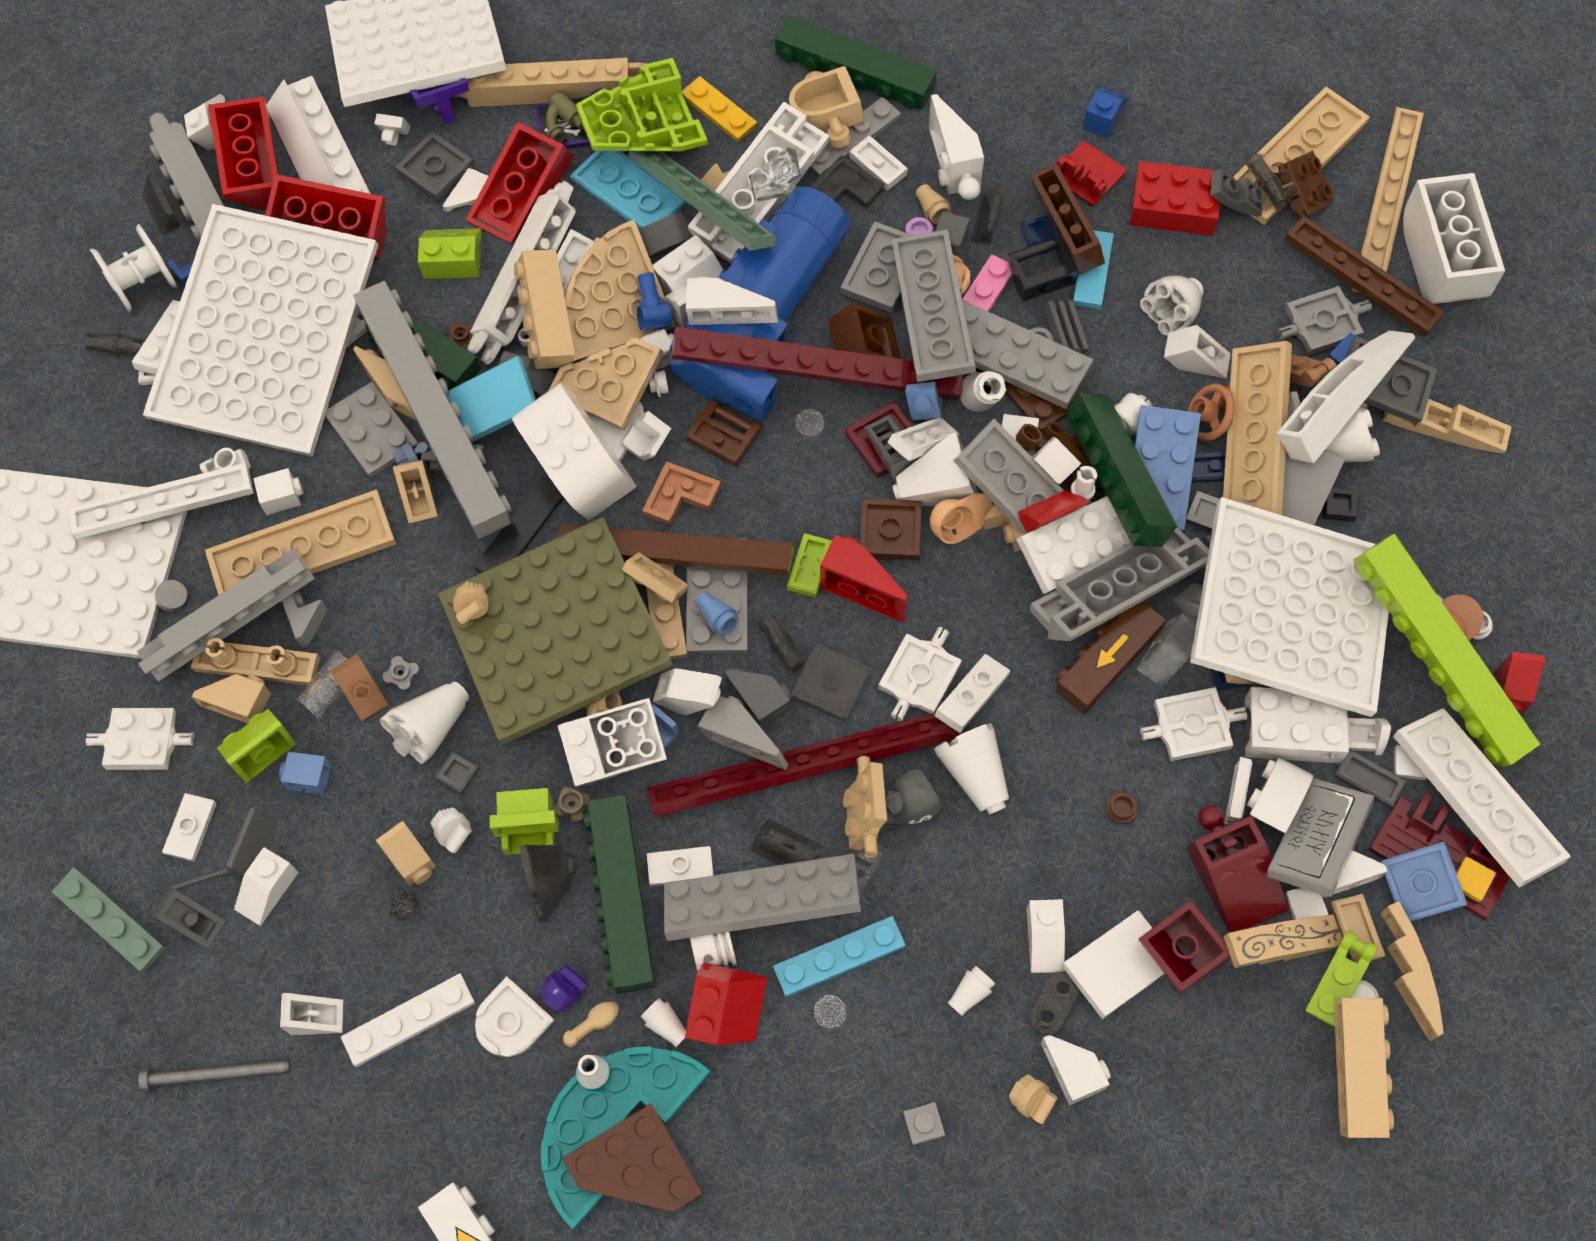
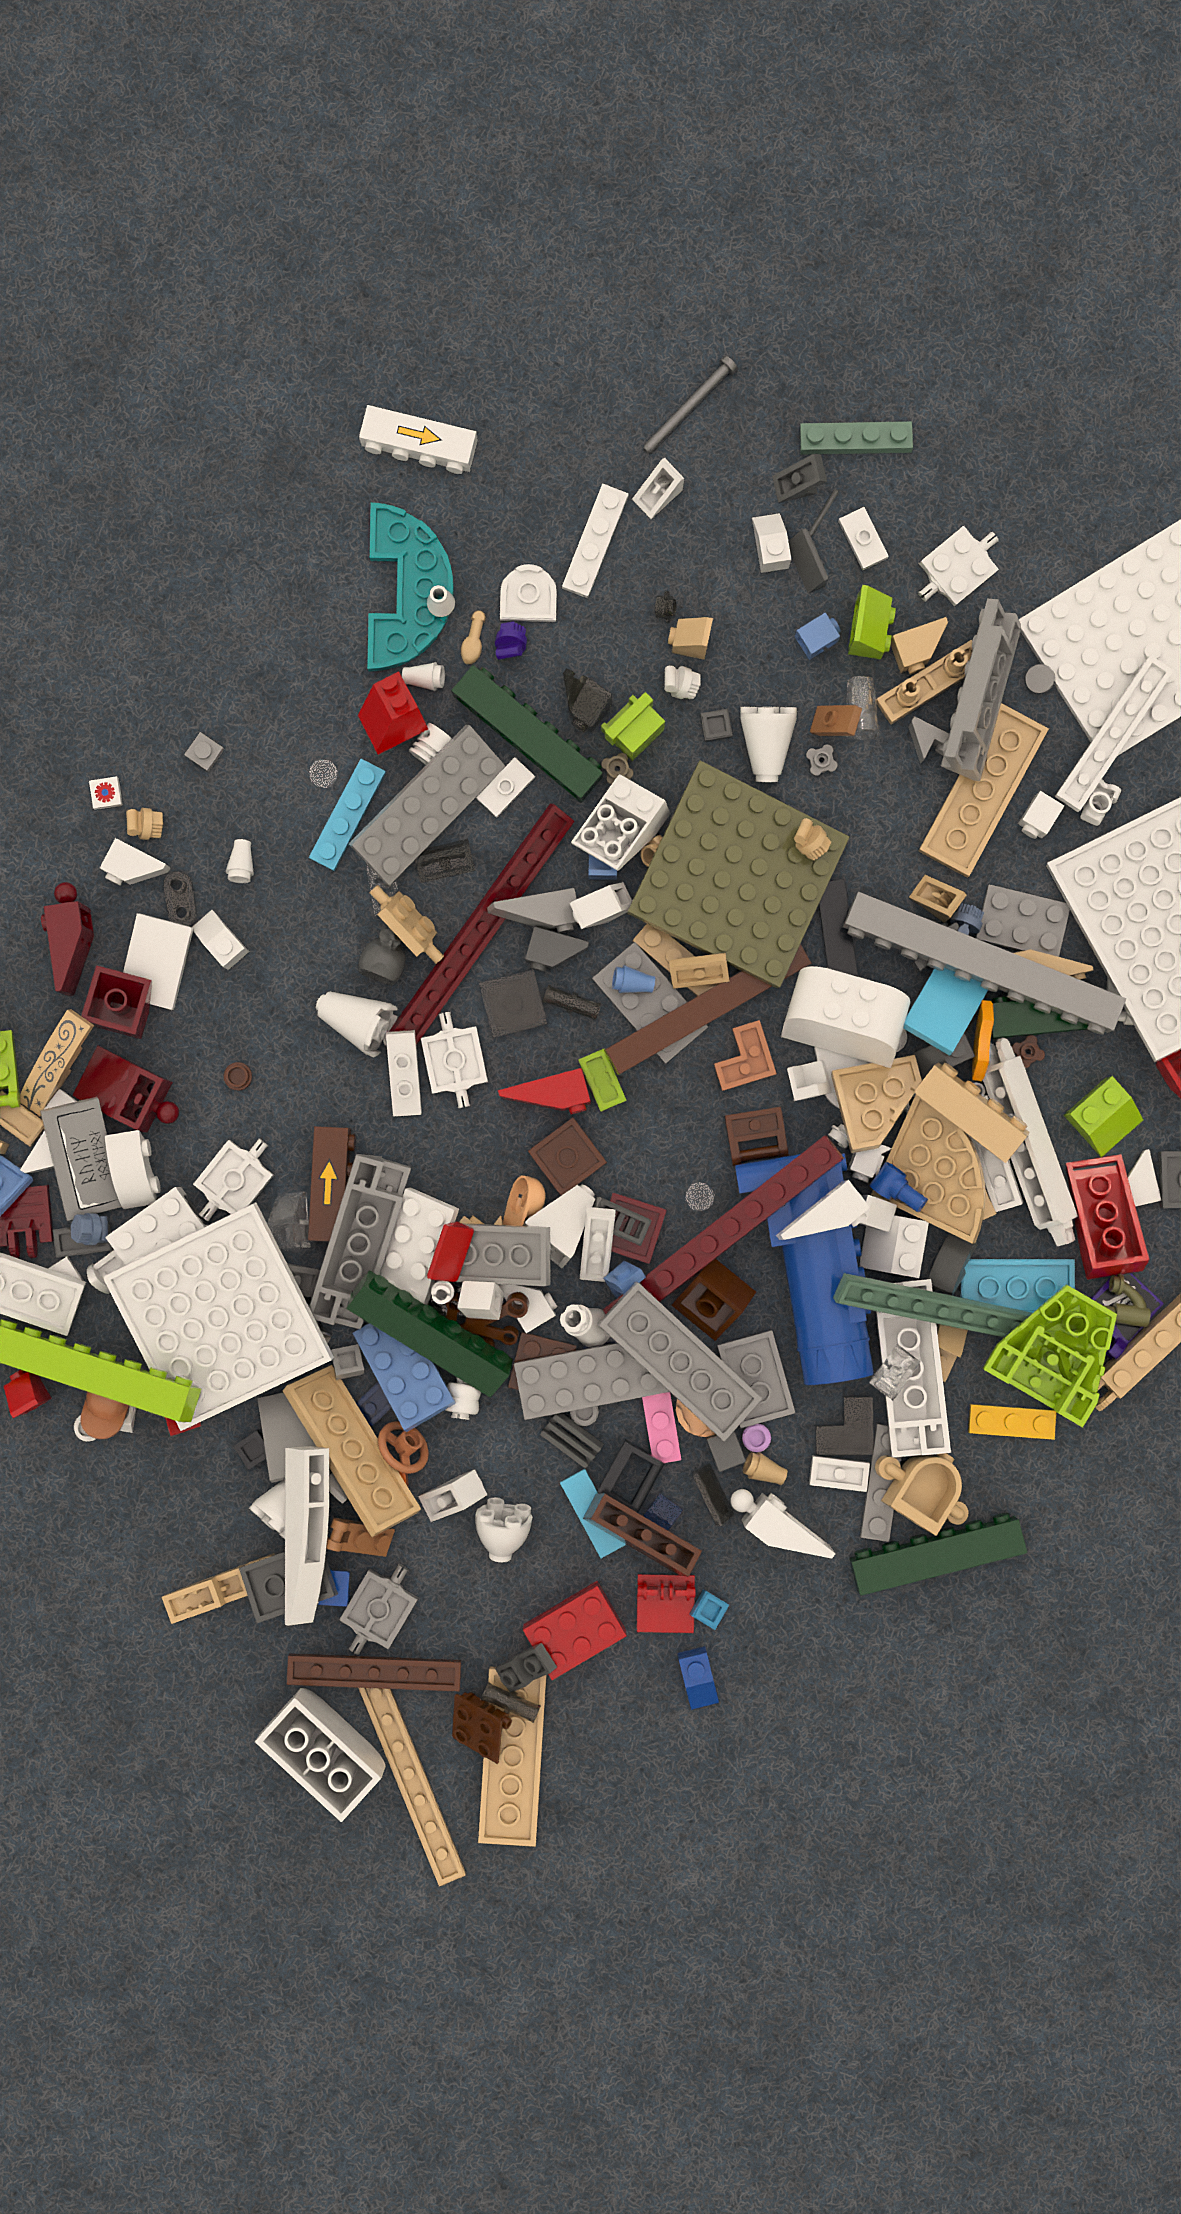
camera: 140 degrees right, 20 degrees up
(487, 357) = (982, 1040): none -> light orange tile
(634, 1164) = (364, 571): reddish brown plate -> none
(1048, 1162) = (105, 793): none -> white tile
(1057, 145) = (709, 1609): none -> dark azure tile
(1182, 1047) = (69, 937): none -> dark red slope
(1238, 791) = (164, 1151): white tile -> none
(1358, 773) = (89, 1229): none -> sand blue piece

